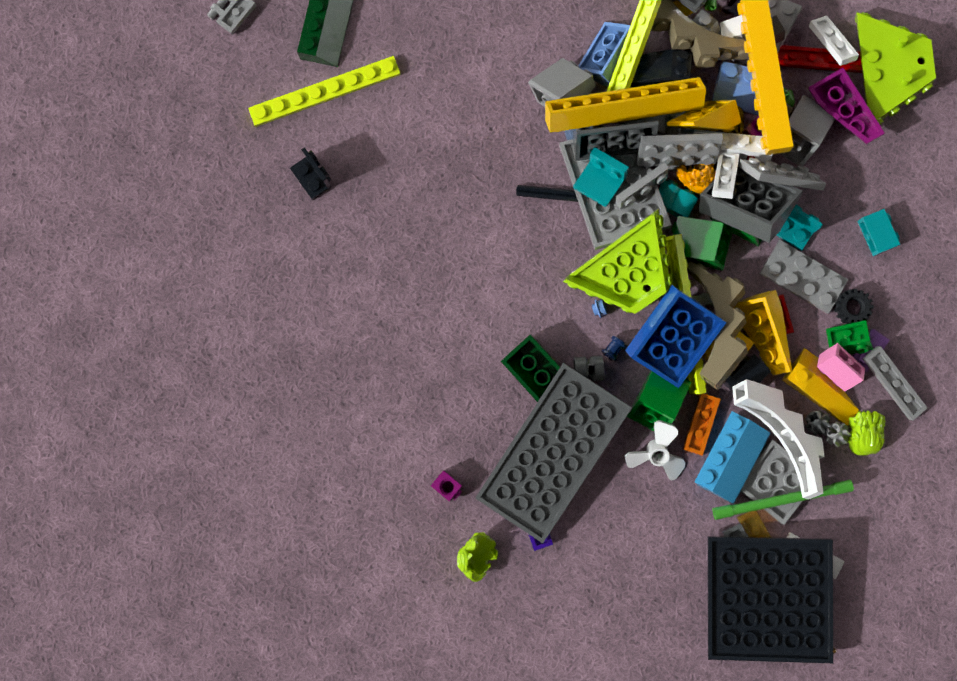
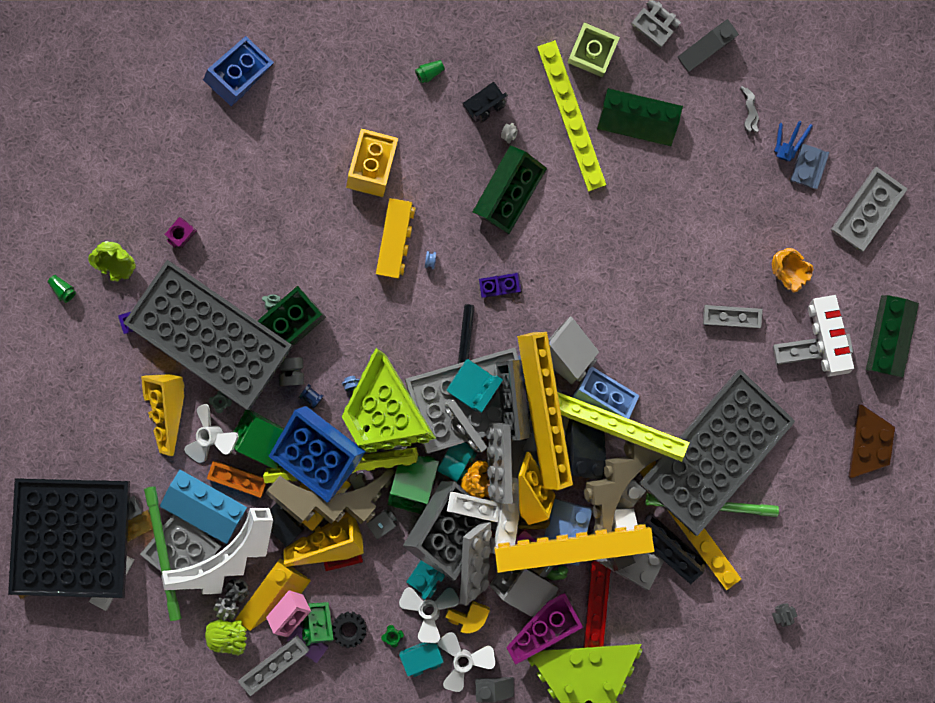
camera: 85 degrees right, 5 degrees up
(258, 68) = (593, 50): none -> yellowish green brick
(278, 428) = (237, 71): none -> blue slope
(280, 235) = (429, 71): none -> green cone
(341, 151) = (509, 132): none -> white plate
(373, 289) = (371, 163): none -> yellow slope
(398, 150) = (509, 189): none -> dark green slope
(450, 265) = (394, 238): none -> yellow brick
(471, 228) = (430, 260): none -> medium blue bush
(496, 159) = (500, 285): none -> dark purple slope
(506, 611) = (62, 289): none -> green cone
(517, 390) = (270, 301): none -> sand green plate
(616, 443) = (214, 401): none -> sand green plate
(622, 499) = (166, 401): none -> yellow wedge
(744, 272) = (382, 523): none -> dark grey brick
(803, 276) = (380, 582): light grey plate -> none
(822, 242) = (411, 601): none -> white piece
(833, 40) = (613, 620): white plate -> none
(839, 182) = (472, 620): none -> yellow brick
(856, 257) = (397, 635): none -> green plate
(877, 171) = (482, 658): none -> white piece
(908, 161) = (494, 689): none -> dark grey slope

